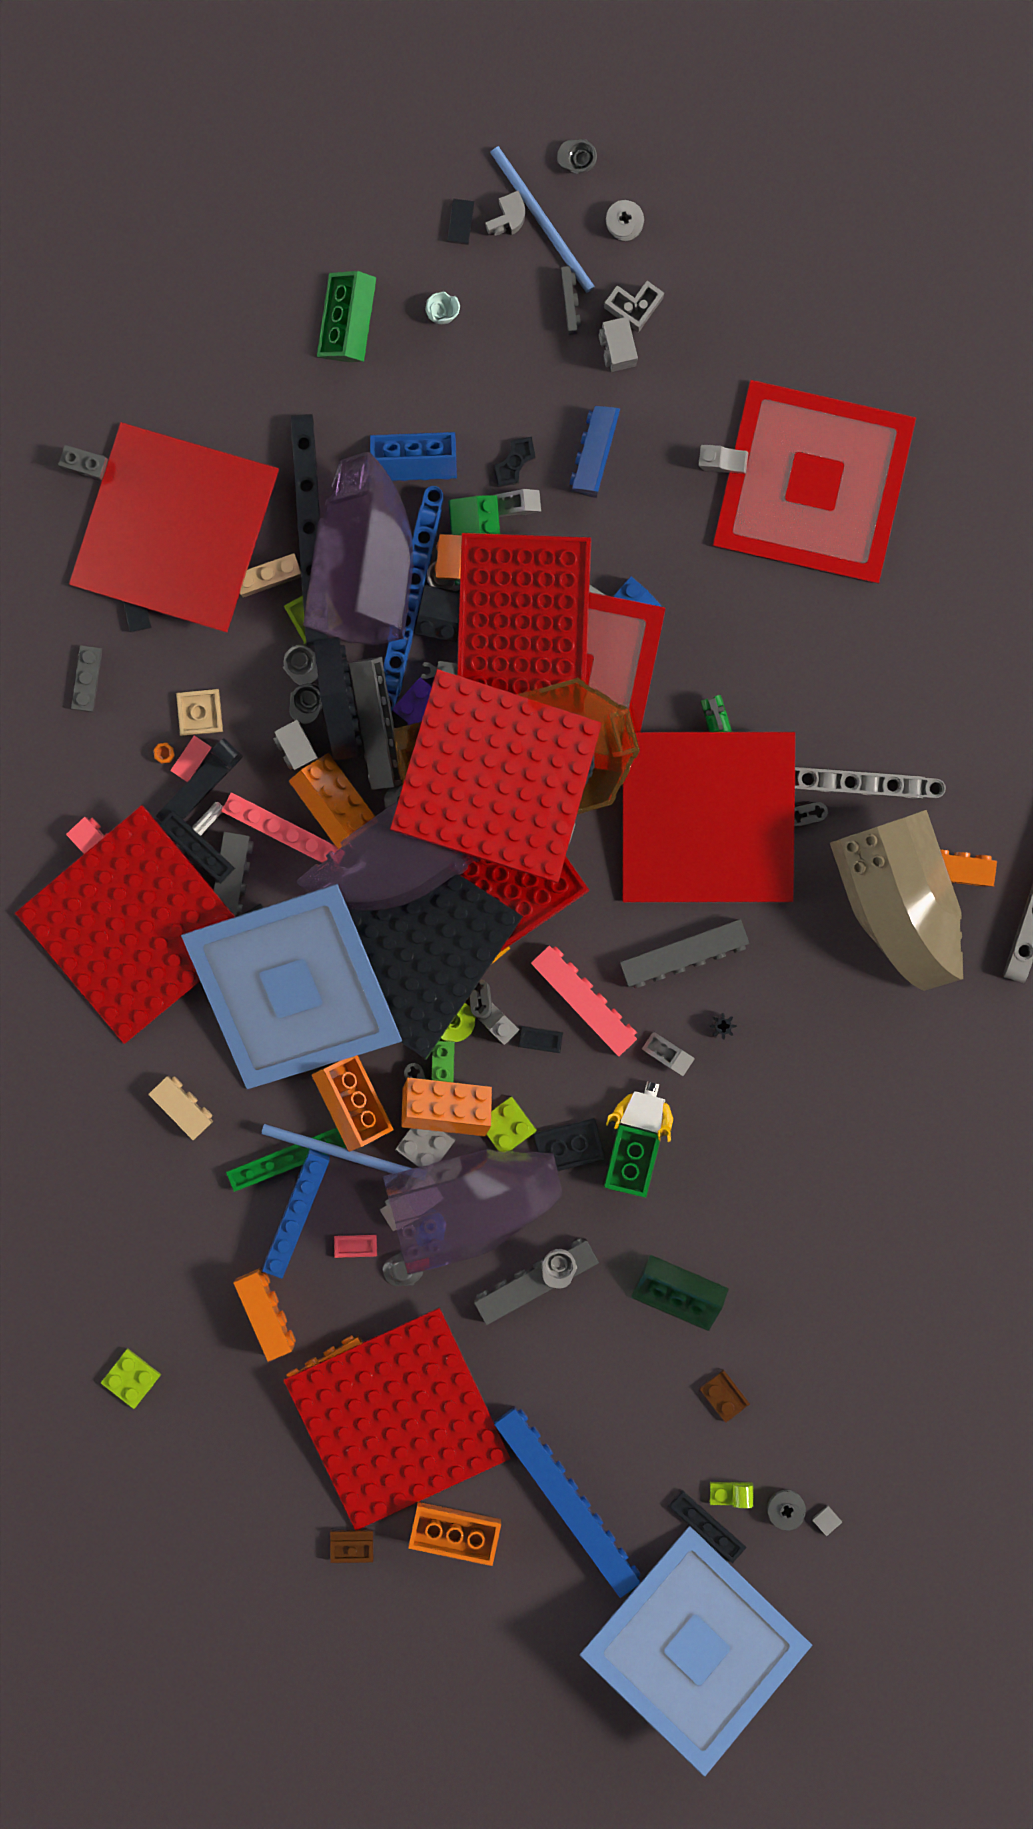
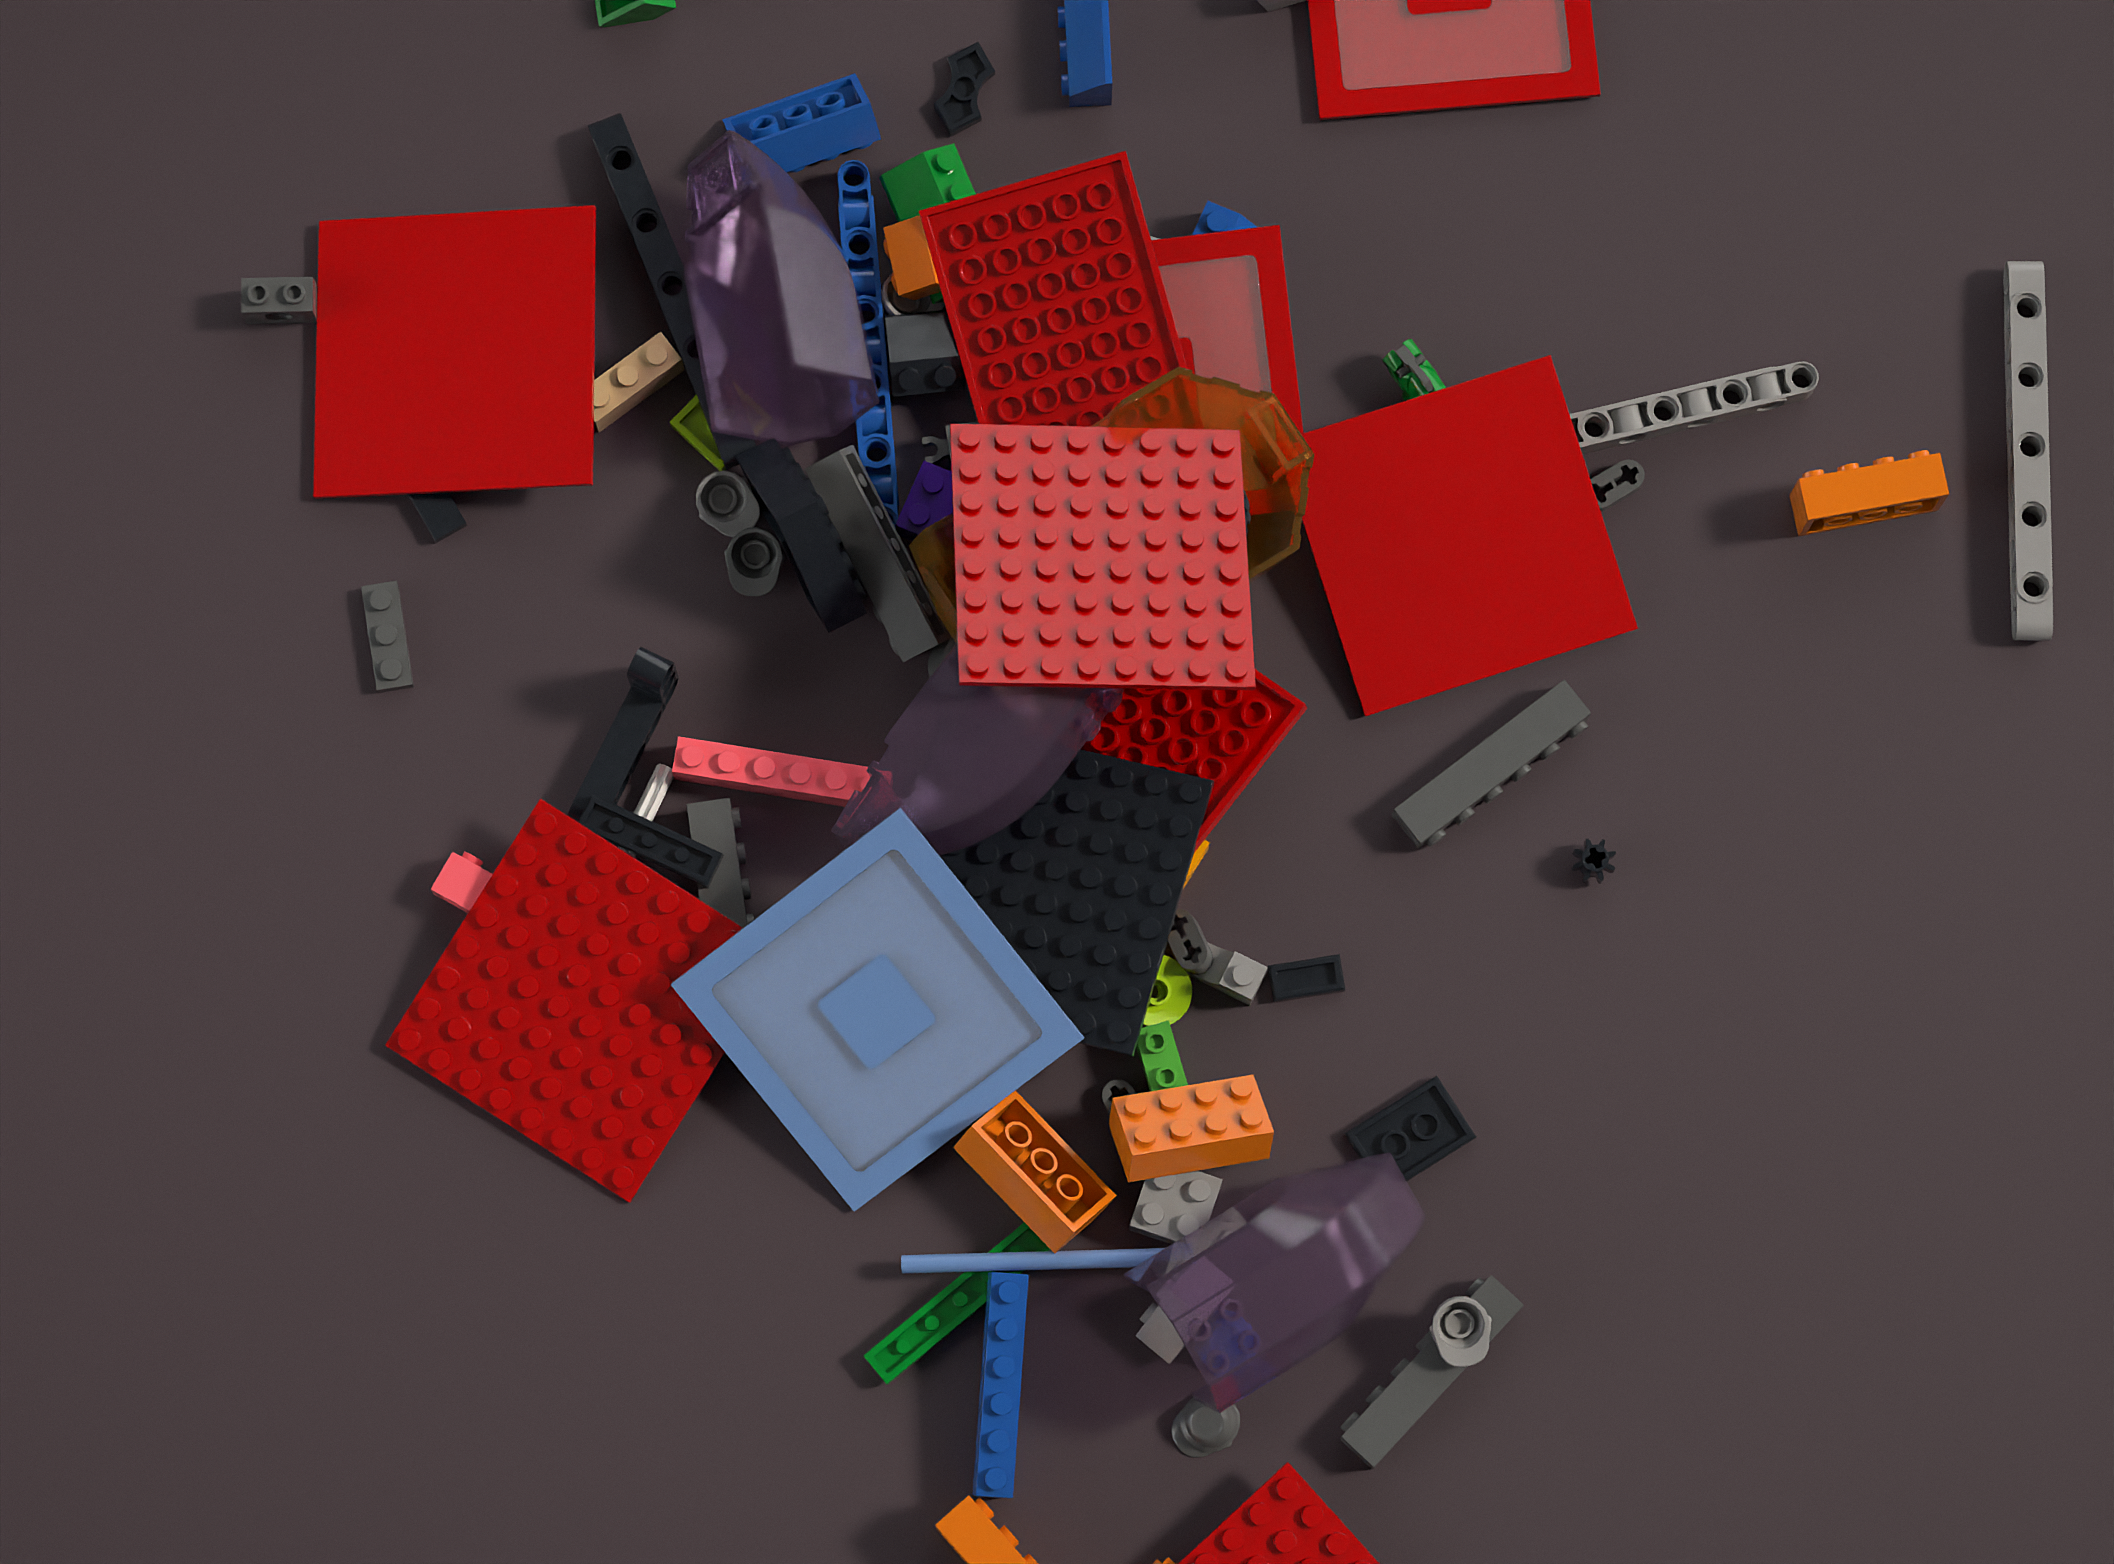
camera: 20 degrees left, 10 degrees down
(164, 753) = (549, 714): orange tile -> none
(181, 1107) = (756, 1272): tan brick -> none
(191, 758) = (596, 709): coral tile -> none
(199, 712) = (586, 633): tan tile -> none
(296, 746) = (760, 631): light grey brick -> none
(331, 798) = (840, 693): orange brick -> none
(355, 1246) = (1114, 1411): coral tile -> none
(509, 1126) = (1302, 1132): lime plate -> none
(519, 502) = (992, 146): light grey arch -> none
(584, 1000) = (1356, 891): coral brick -> none
(632, 1160) = (1521, 1121): green brick -> none
(644, 1112) = (1514, 1037): torso -> none
(668, 1053) = (1521, 932): light grey arch -> none
(680, 1293) = (1672, 1315): clear green slope -> none
(724, 1396) = (1803, 1463): reddish brown plate -> none
(905, 898) = (1813, 555): dark tan windscreen -> none

